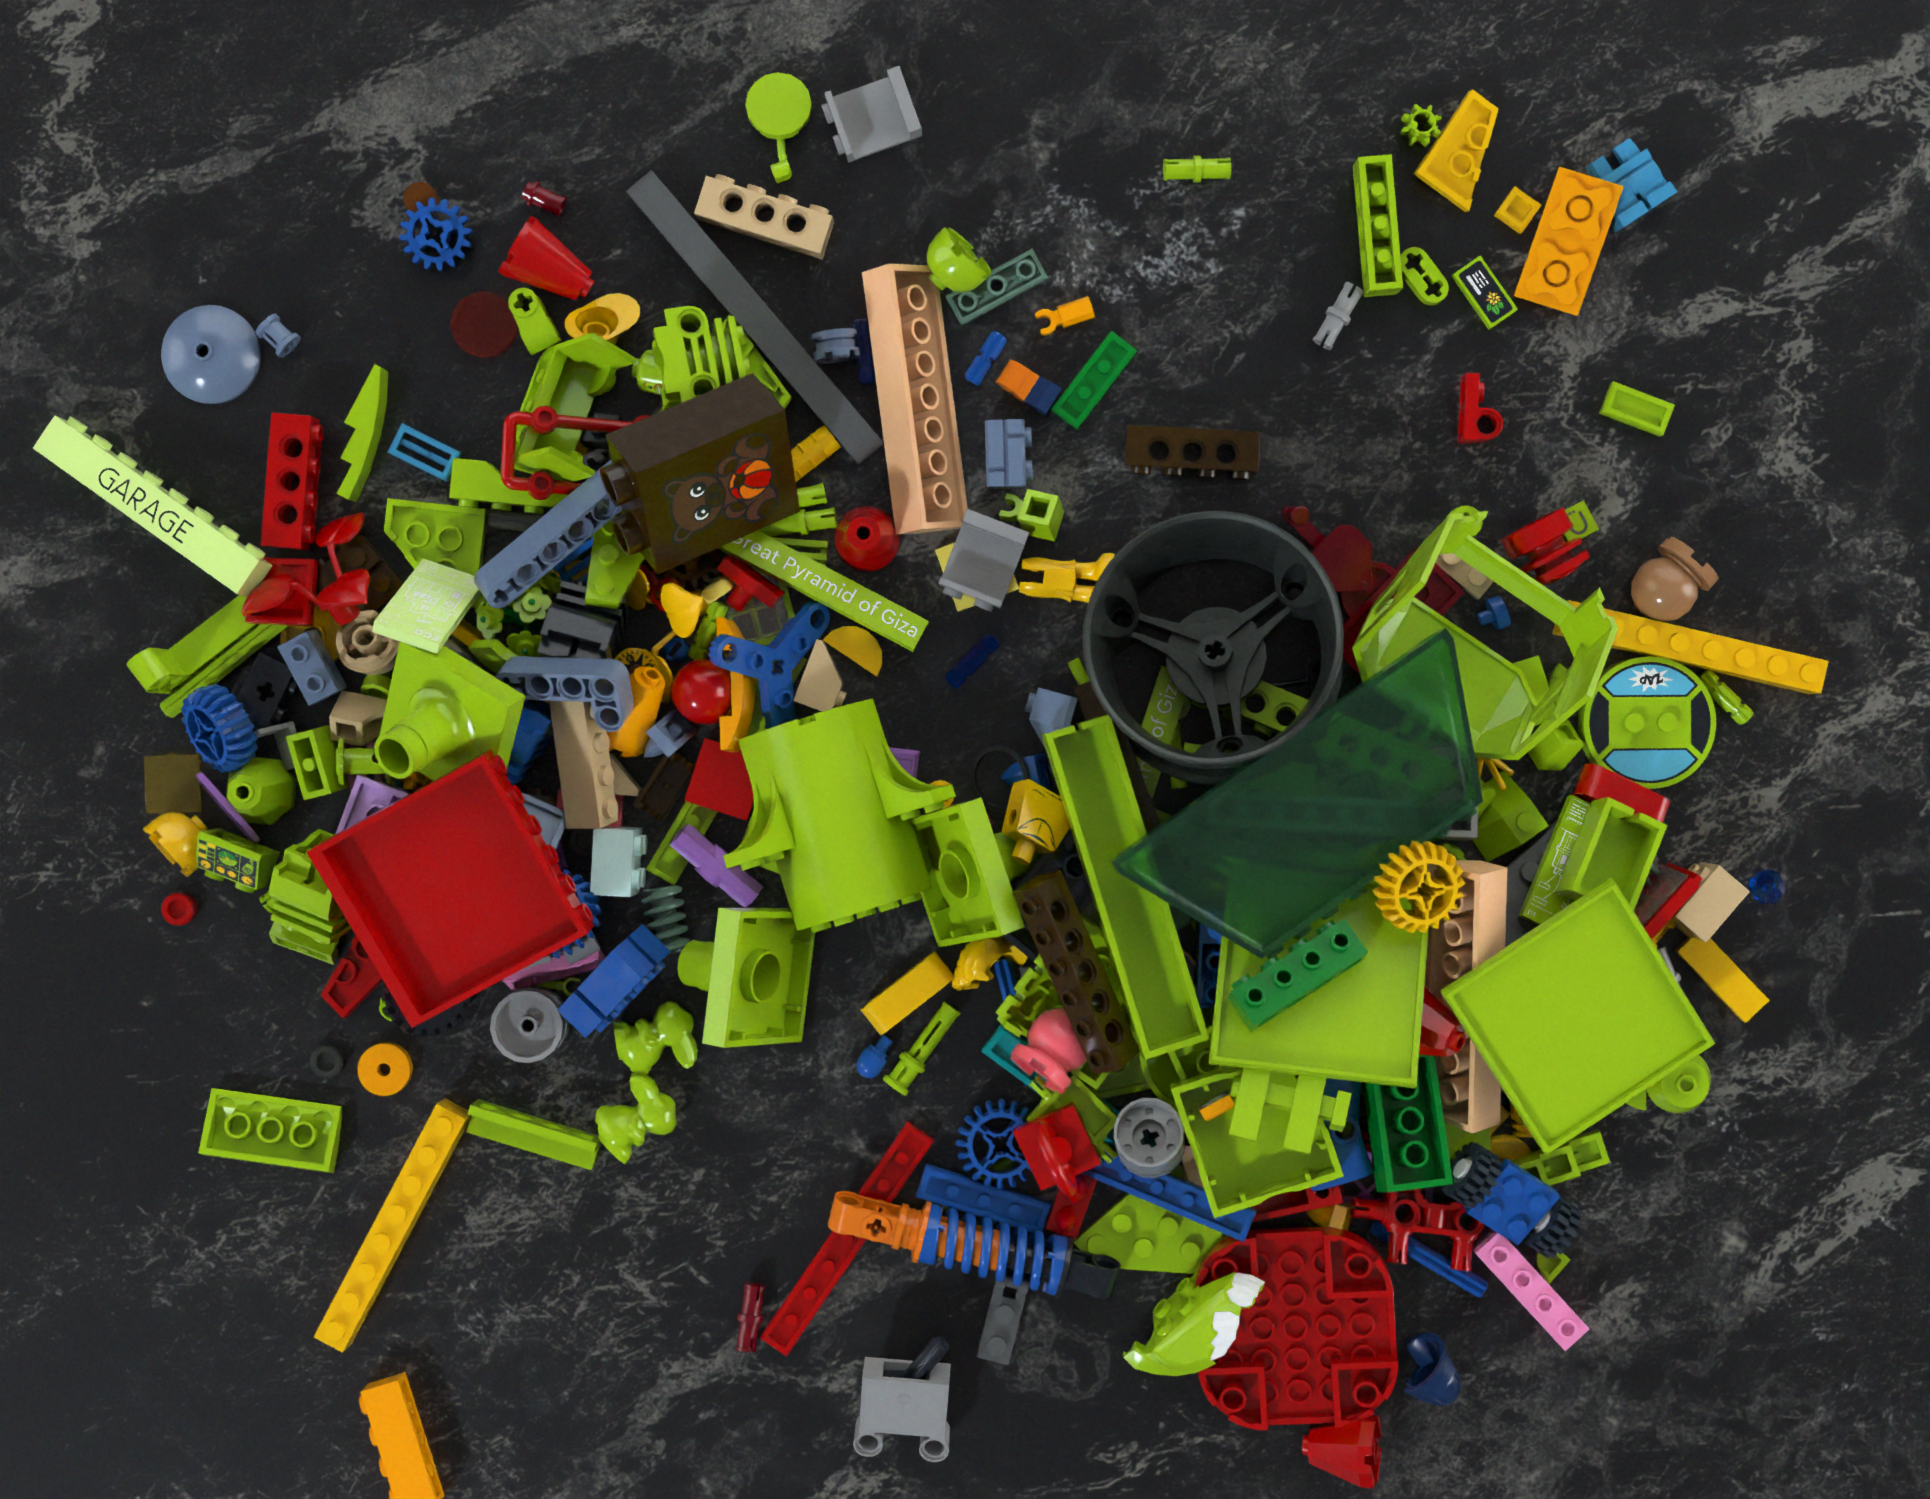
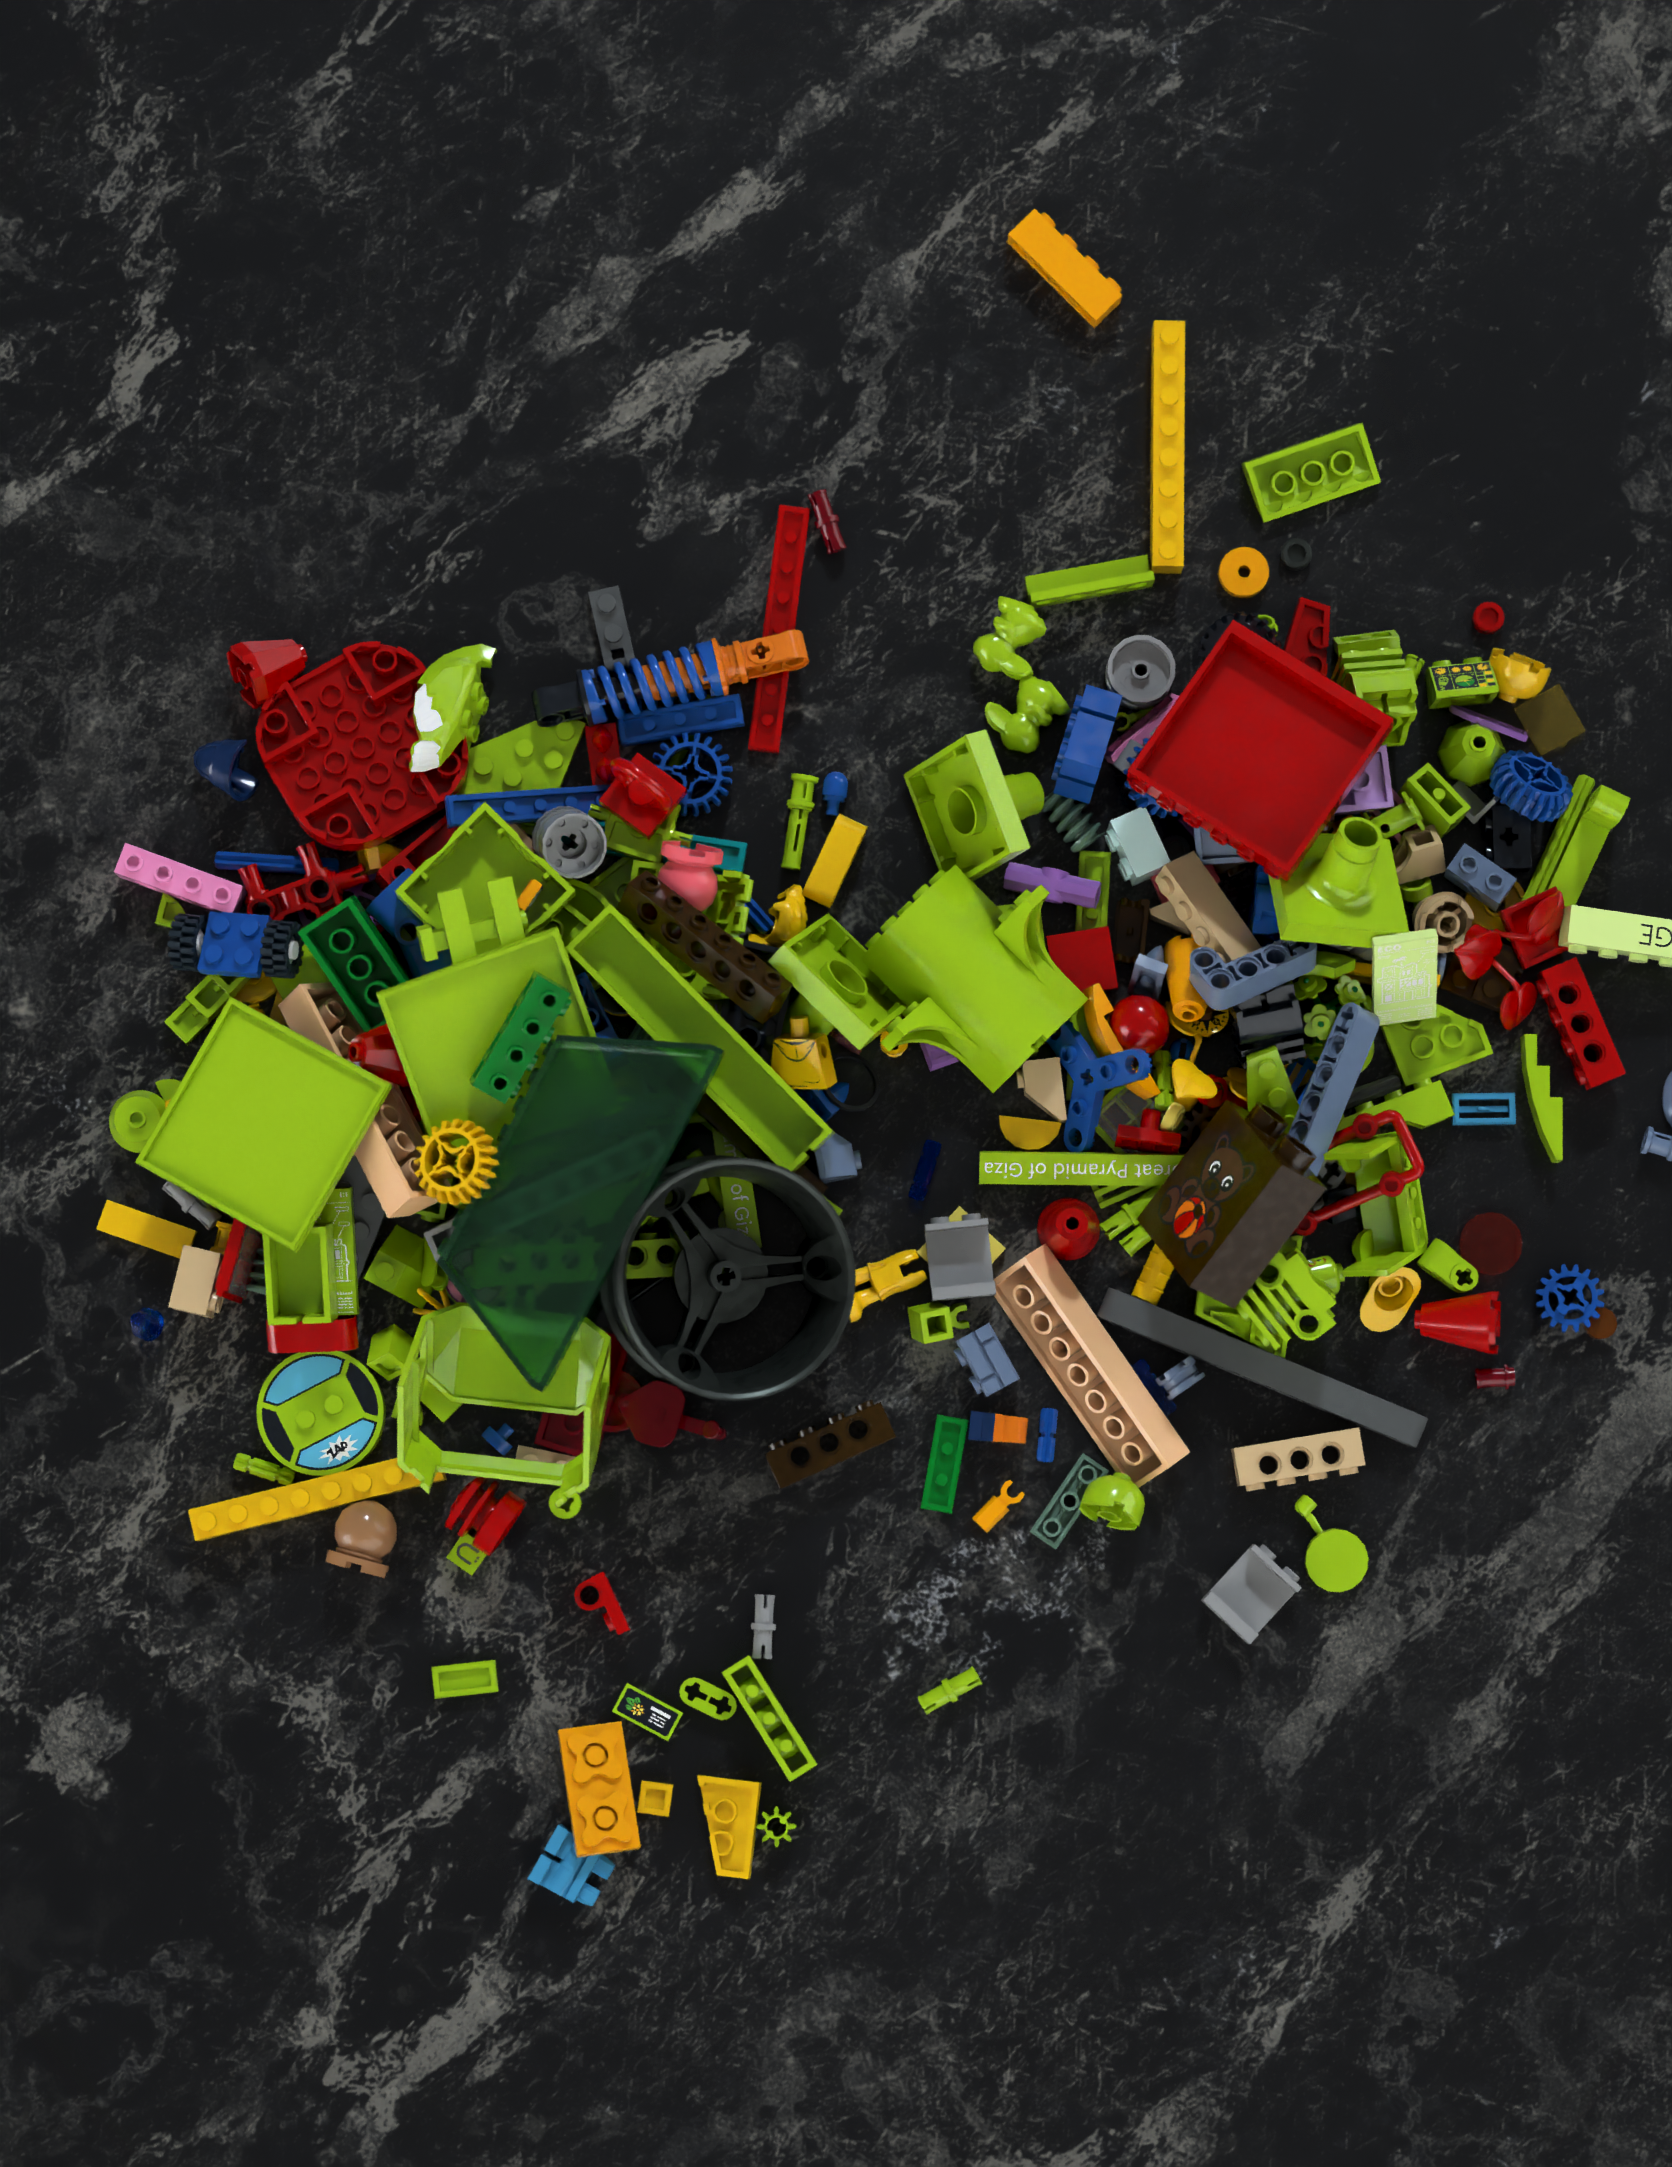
camera: 150 degrees right, 5 degrees down
(906, 1400) = (660, 519): light grey piece -> none

